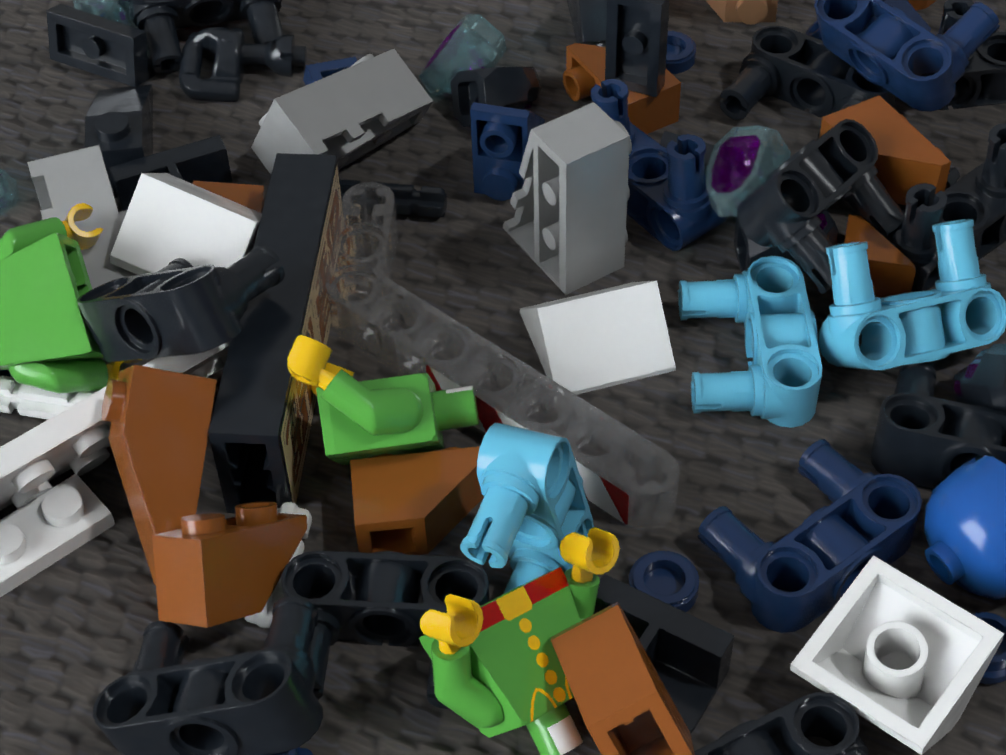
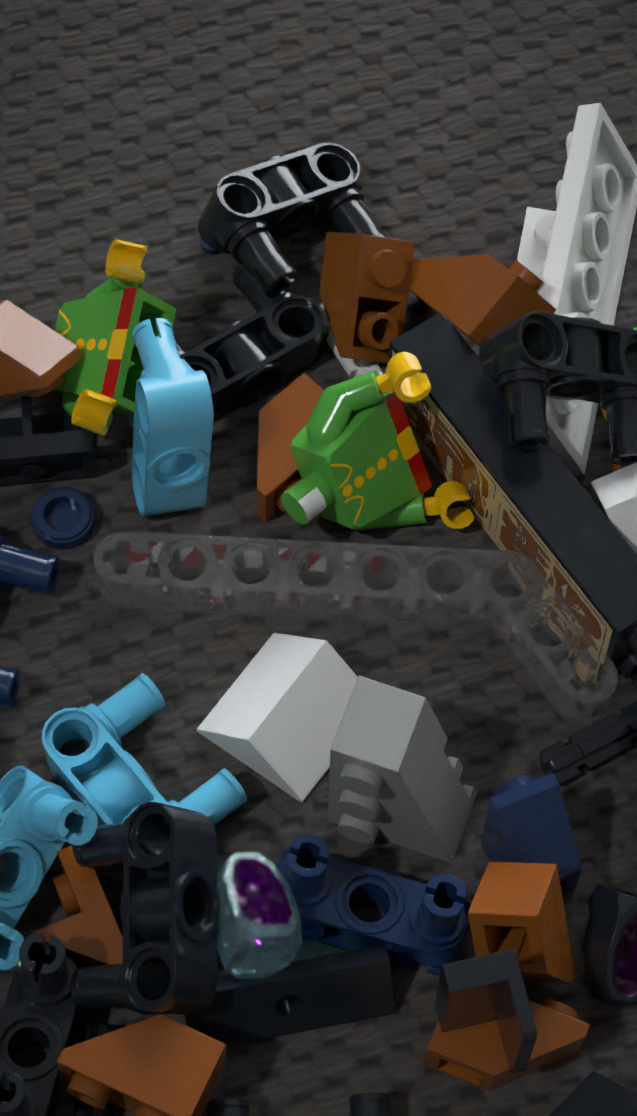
camera: 140 degrees right, 15 degrees up
(564, 75) = (524, 911): none -> dark orange slope

